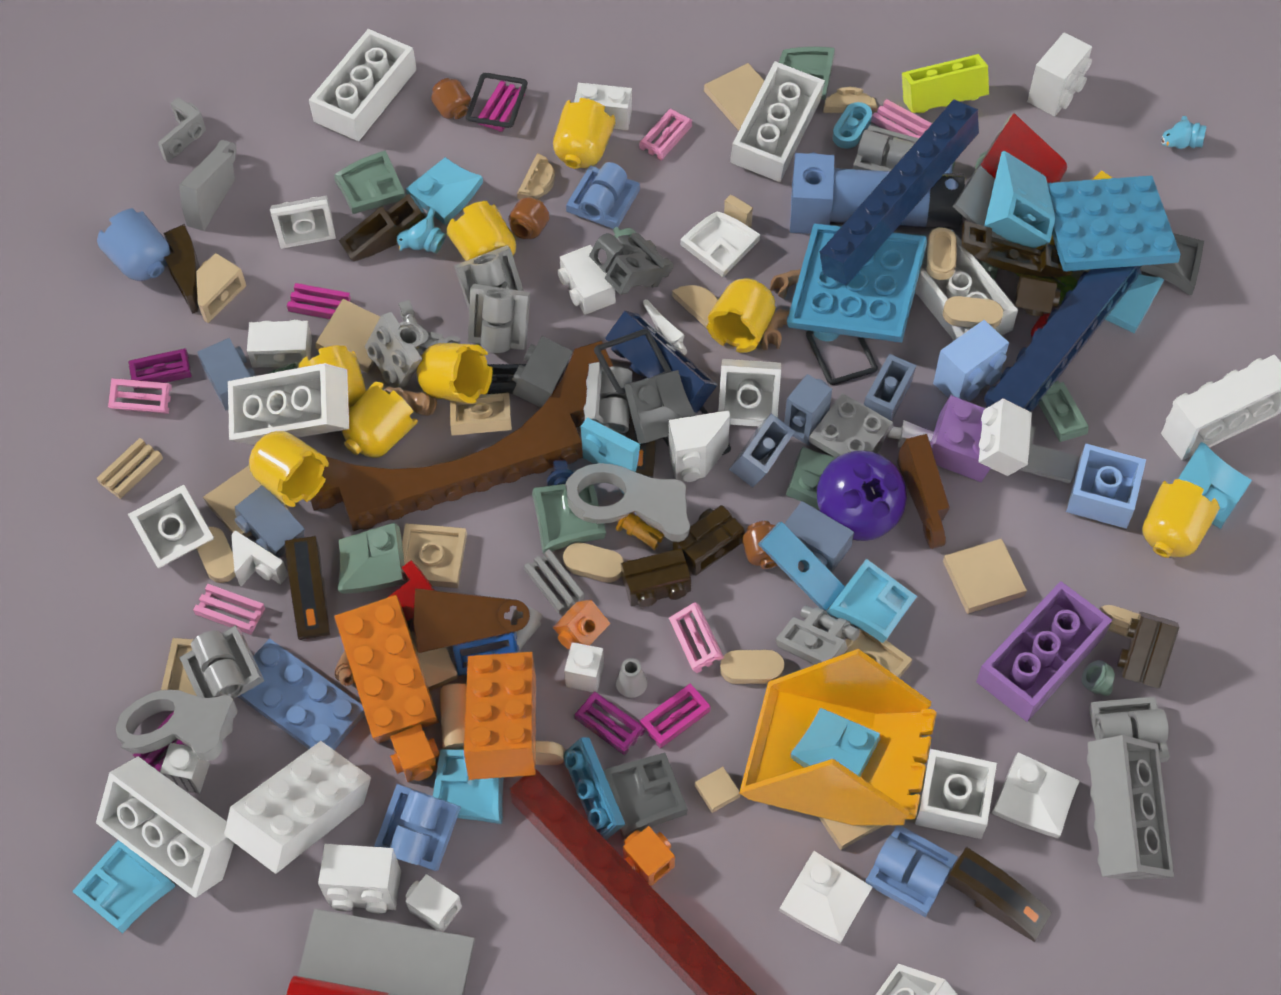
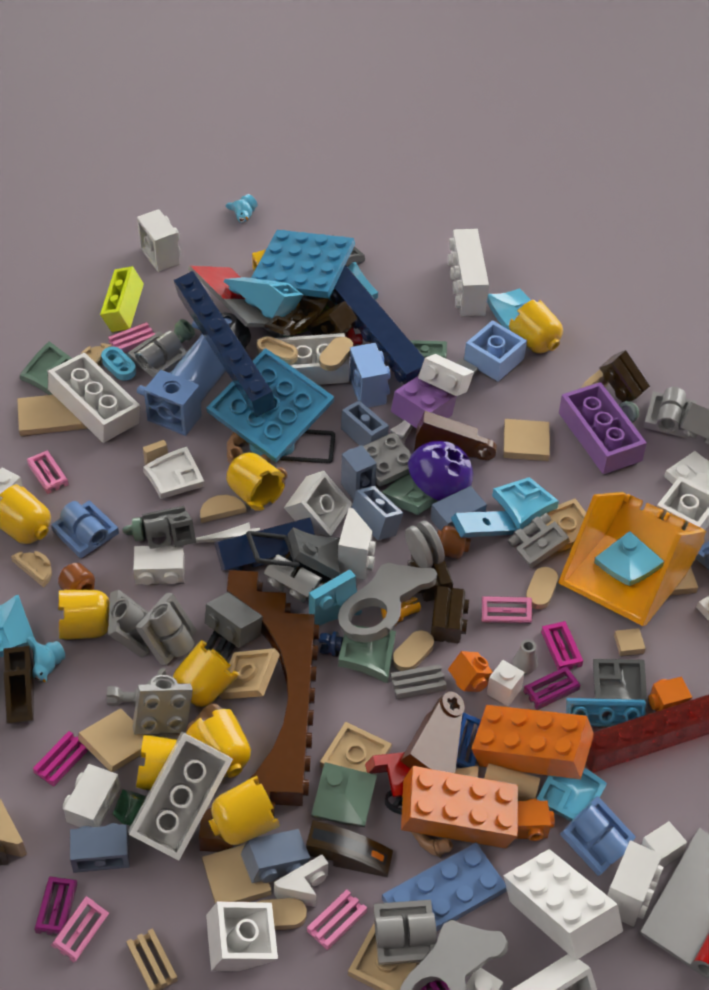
camera: 70 degrees left, 10 degrees down
(715, 506) = (424, 544): none -> light grey head

